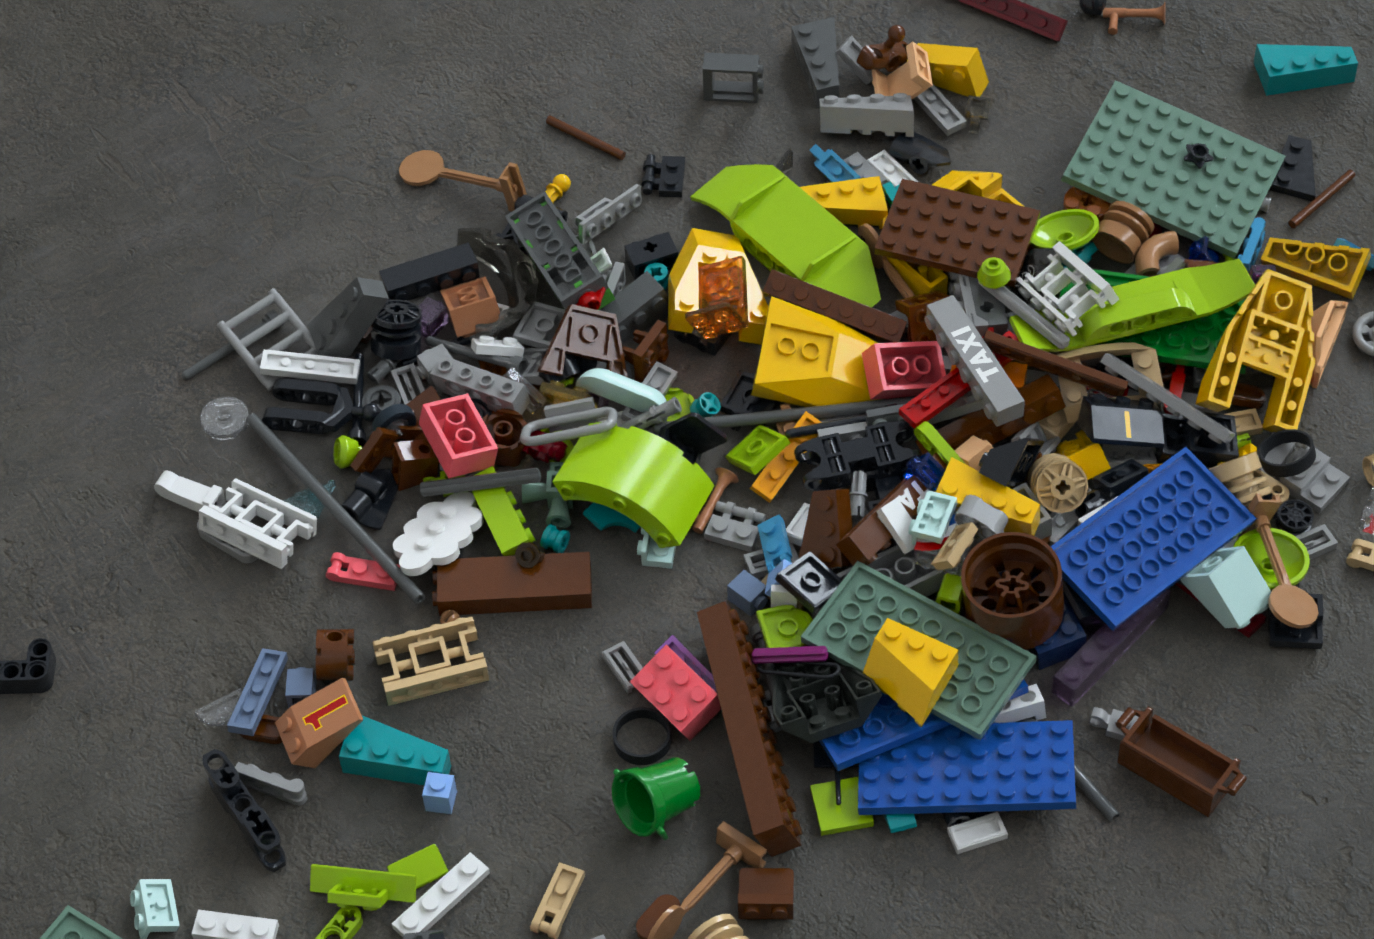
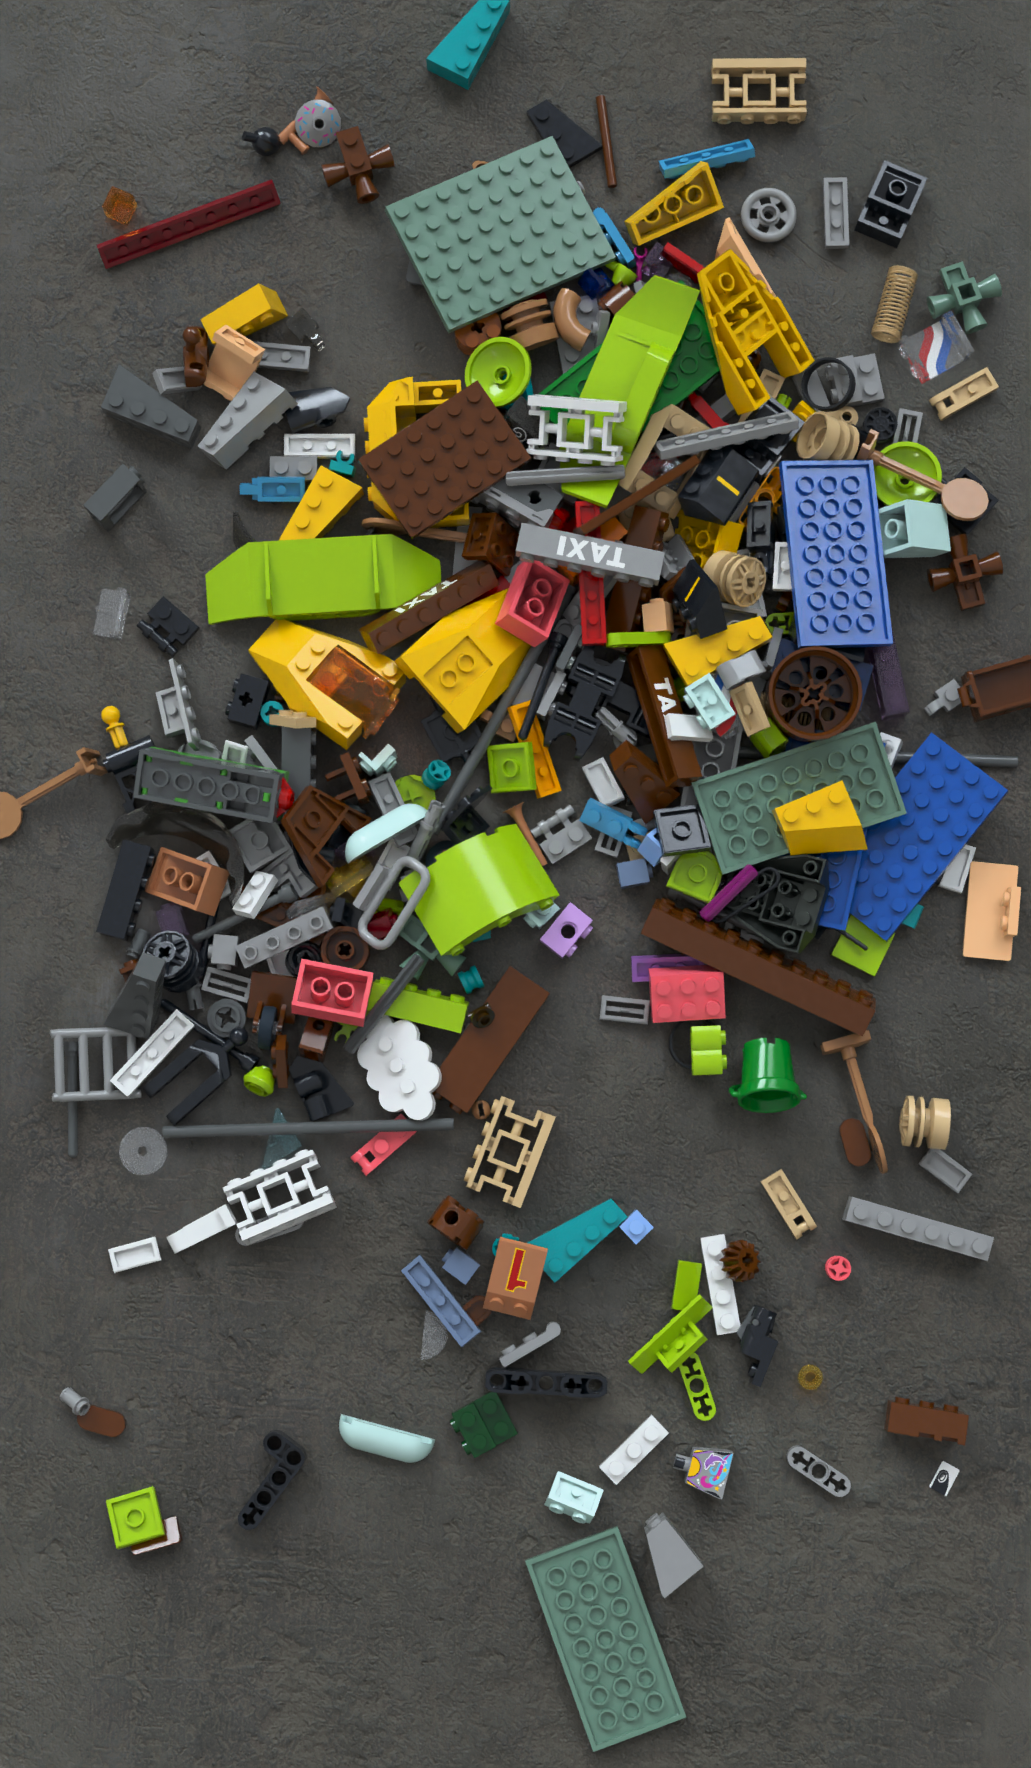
camera: 55 degrees left, 30 degrees up
(102, 736) = (384, 1440): none -> light aqua brick
(132, 464) = (134, 1254): none -> white tile
(171, 796) = (483, 1424): none -> dark green plate
(483, 891) = (740, 1261): none -> reddish brown gear
(533, 408) = (345, 913): none -> black bracket
(585, 137) = (73, 658): reddish brown bar -> none
(640, 737) = (707, 1050): none -> lime brick
(643, 137) = (111, 613): none -> clear panel
(644, 572) = (571, 917): none -> lavender brick
(661, 275) = (292, 719): none -> tan plate
(681, 358) = (382, 762): none -> light aqua bracket
(766, 893) = (896, 1054): reddish brown bracket -> none
(926, 470) = (654, 669): clear blue bracket -> none
(962, 884) = (991, 911): none -> light nougat bracket
(993, 273) = (514, 477): lime cone -> none
(1134, 59) = (357, 164): none -> reddish brown brick
(1146, 29) = (306, 118): none -> light grey dish
(1200, 149) = (509, 200): black plate -> none
(1235, 659) = (965, 573): none -> reddish brown brick

